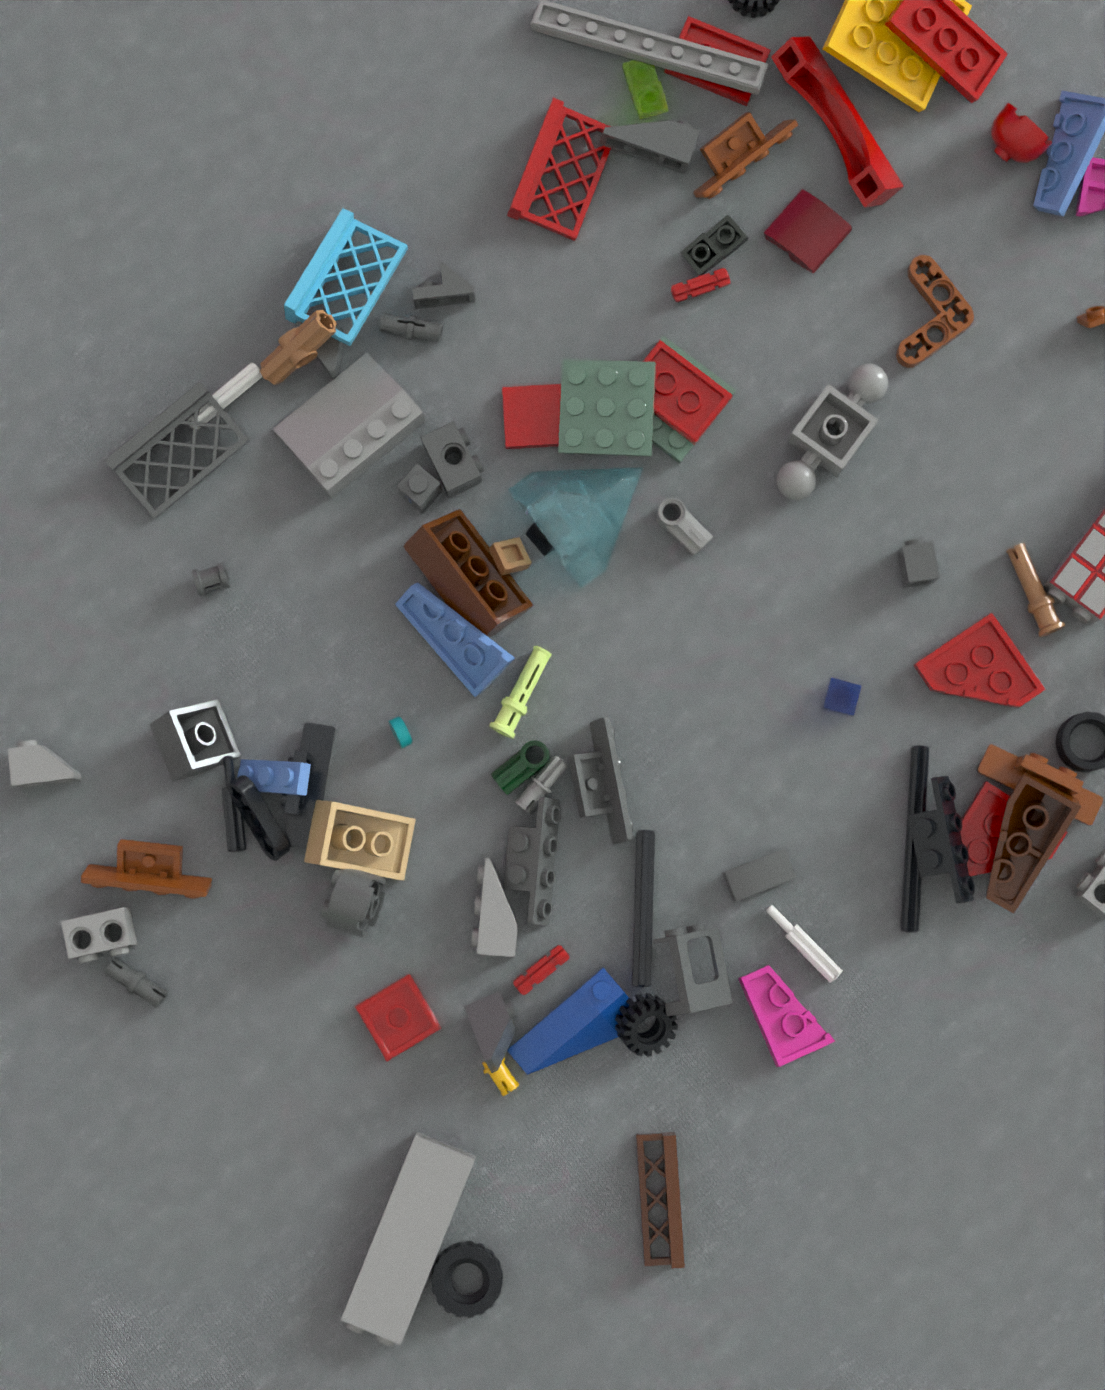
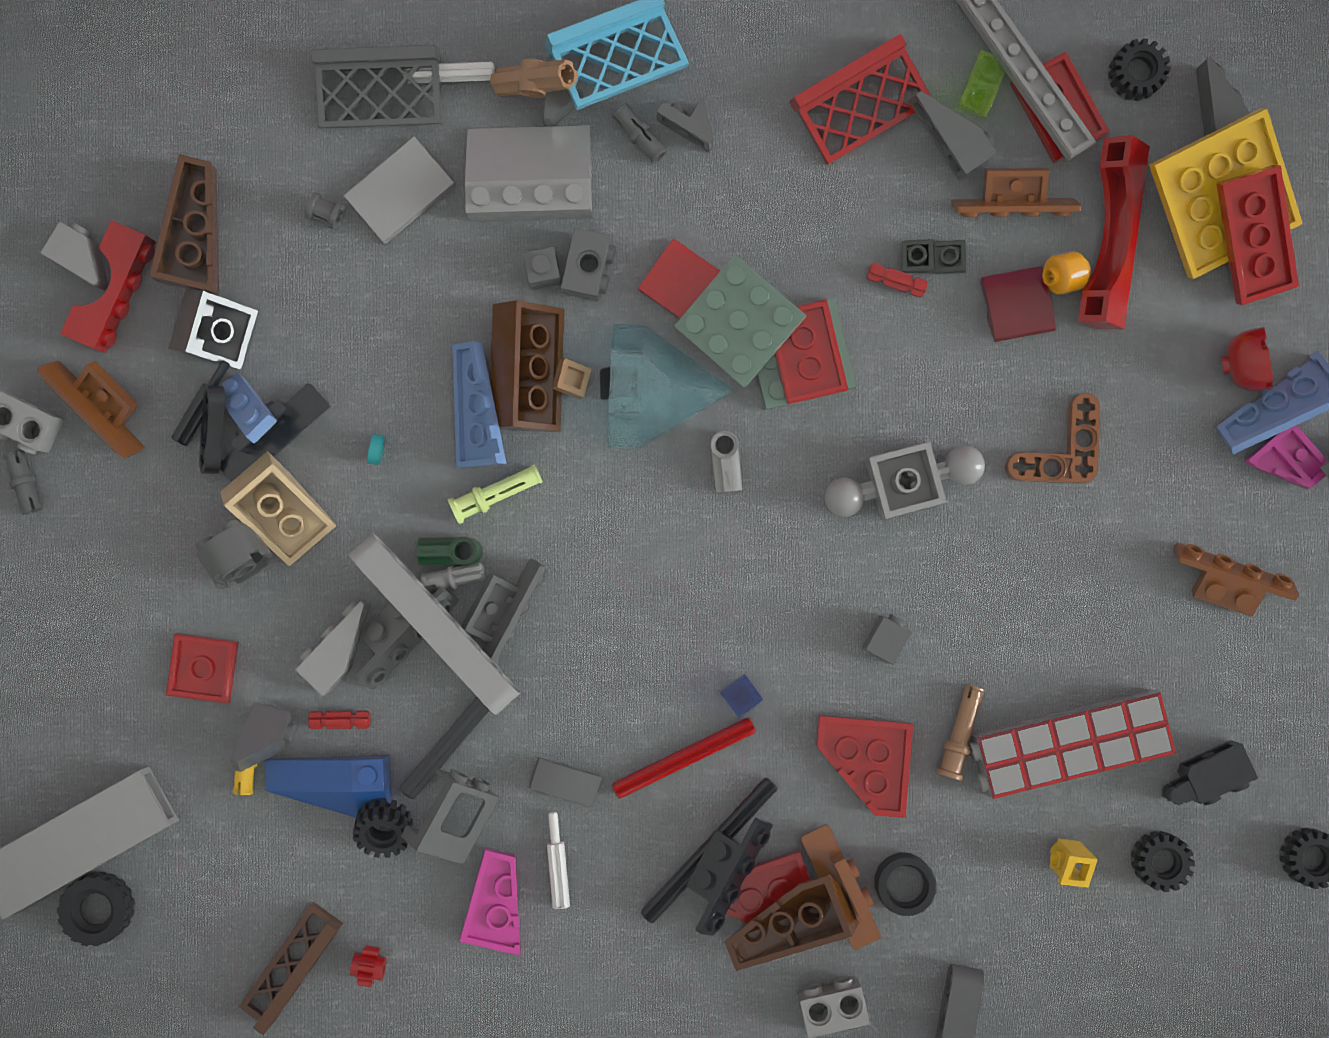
camera: 35 degrees right, 5 degrees up
(96, 809) = (127, 255): none -> red arch
(121, 682) = (189, 231): none -> reddish brown wedge
(257, 517) = (399, 190): none -> light grey tile
(559, 827) = (434, 623): none -> light grey beam
(723, 1146) = (368, 966): none -> red gear
(825, 178) = (1066, 272): none -> light orange head
(836, 782) = (683, 758): none -> red axle

